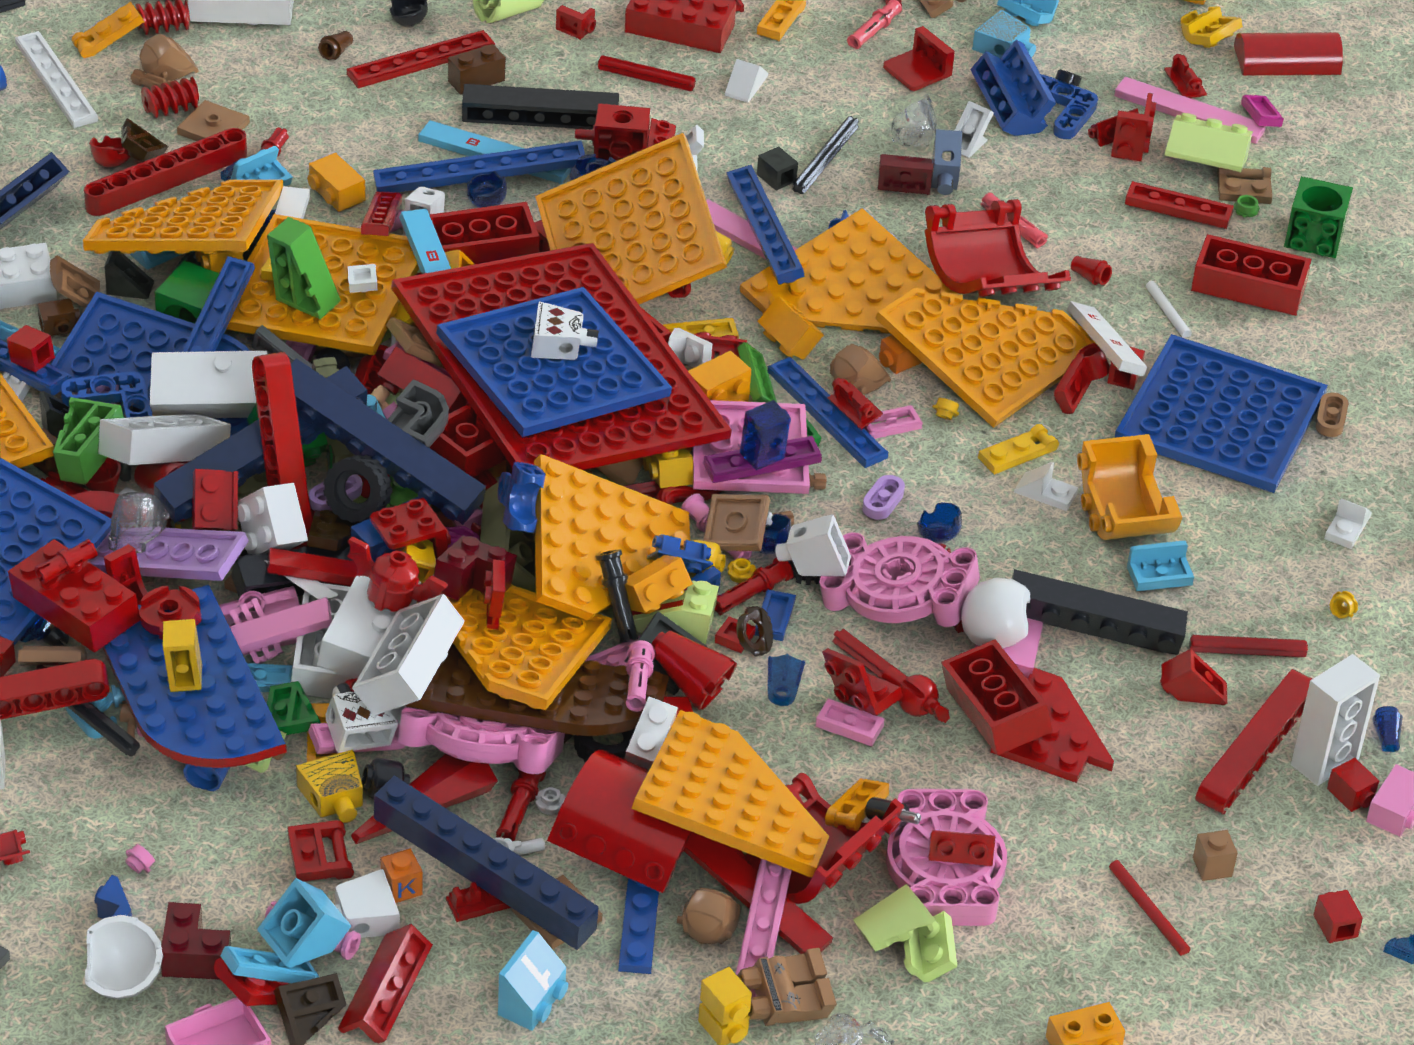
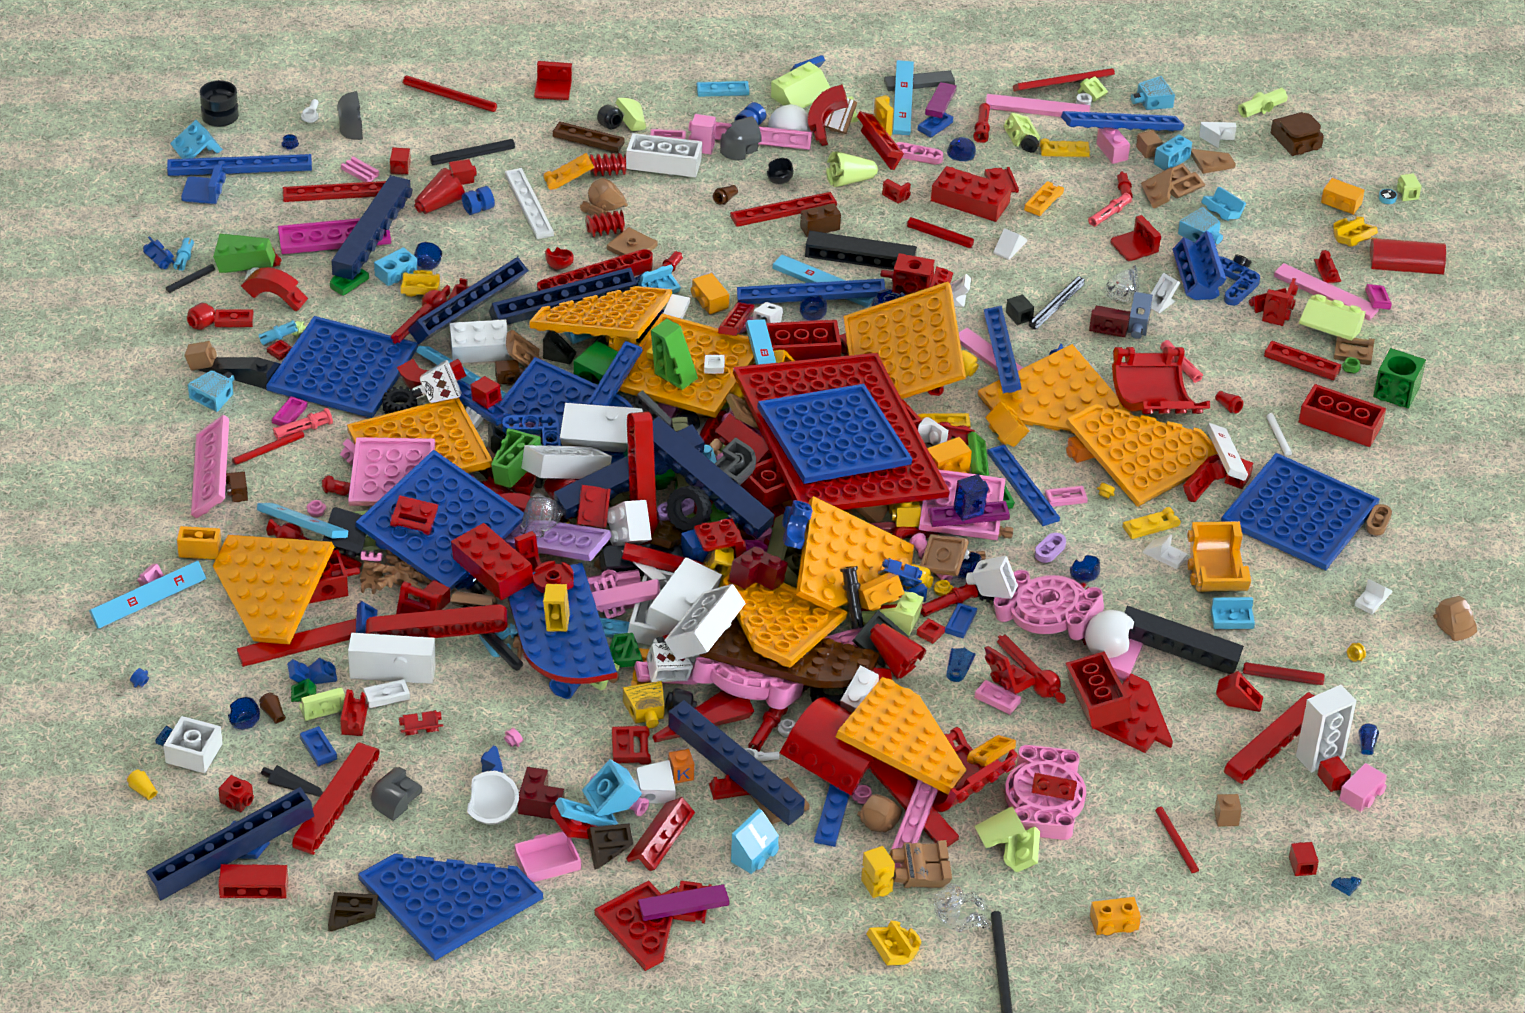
camera: 10 degrees right, 0 degrees up
(65, 561) = (488, 538): red pin -> none
(76, 219) = (527, 305): none -> dark blue brick
(140, 143) = (580, 254): dark brown wing -> none
(392, 578) = (701, 570): red helmet -> none
(494, 593) = (768, 586): red plate -> none
(560, 333) = (840, 414): white torso -> none
(639, 669) = (855, 649): bright pink pin -> none
(679, 883) = (862, 790): none -> bright pink plate
(763, 622) = (951, 635): dark brown piece -> none
(853, 403) = (1041, 481): red hinge -> none
(859, 368) = (1049, 458): medium nougat helmet -> none
(878, 807) = (1002, 753): black piece -> none

